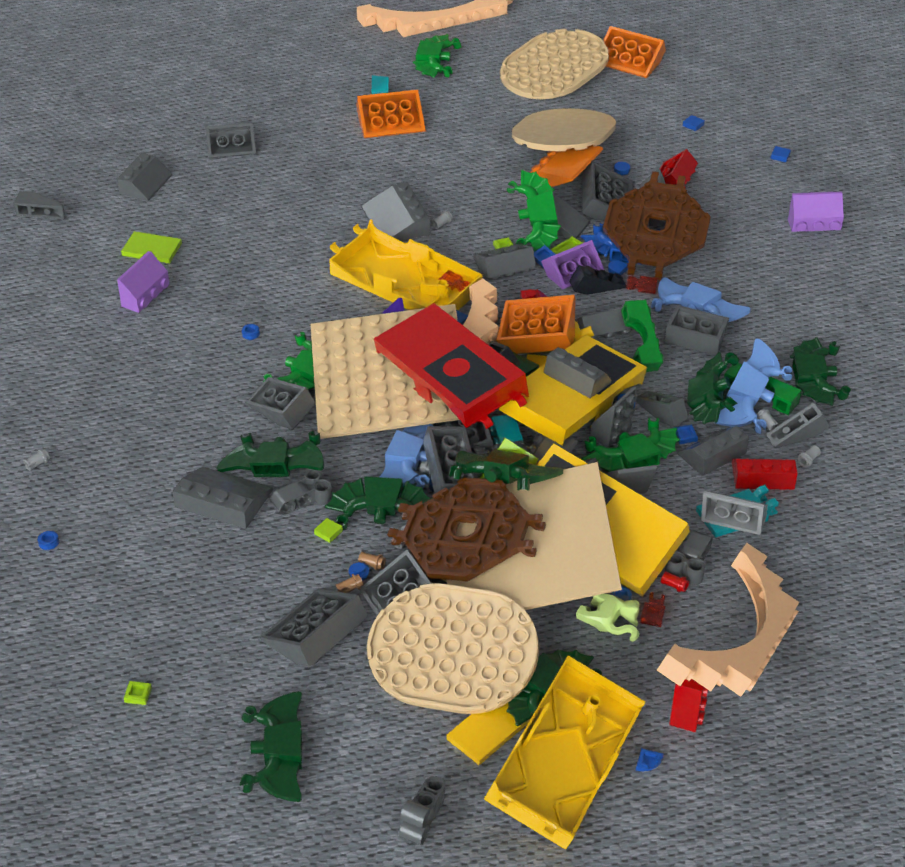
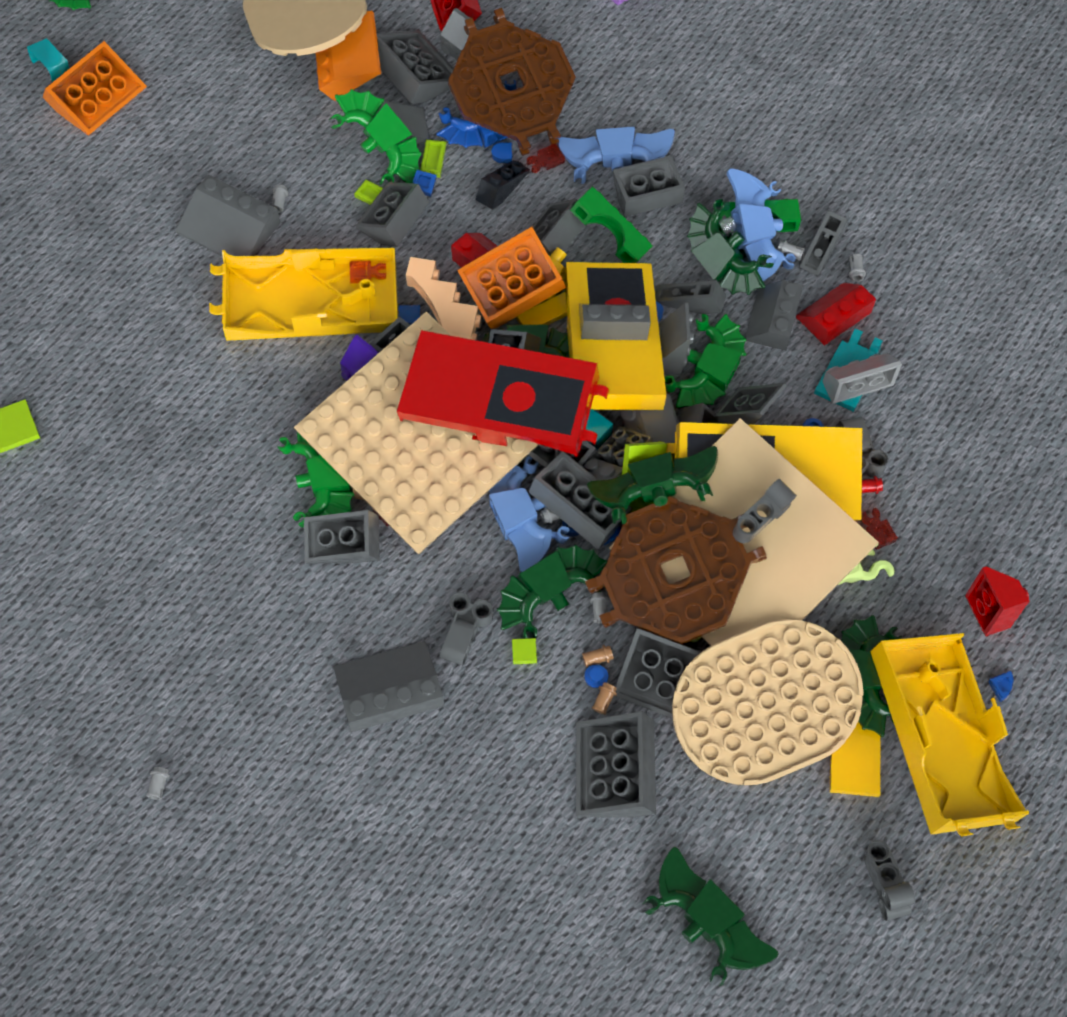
camera: 40 degrees left, 20 degrees up
(48, 540) = (267, 865): blue tile -> none
(137, 692) = (526, 962): lime tile -> none
(142, 282) = (51, 488): medium lavender slope -> none
(250, 331) = (218, 469): blue tile -> none
(274, 458) = (399, 608): dark green torso -> none
(551, 516) = (773, 504): none -> dark grey piece
(563, 265) = (461, 176): medium lavender slope -> none
(622, 168) = (394, 19): blue tile -> none
(686, 434) = (735, 312): blue tile -> none
(728, 372) = (727, 224): none -> clear plate
(742, 665) = (1033, 553): light nougat arch -> none
(812, 372) = (783, 166): dark green torso -> none

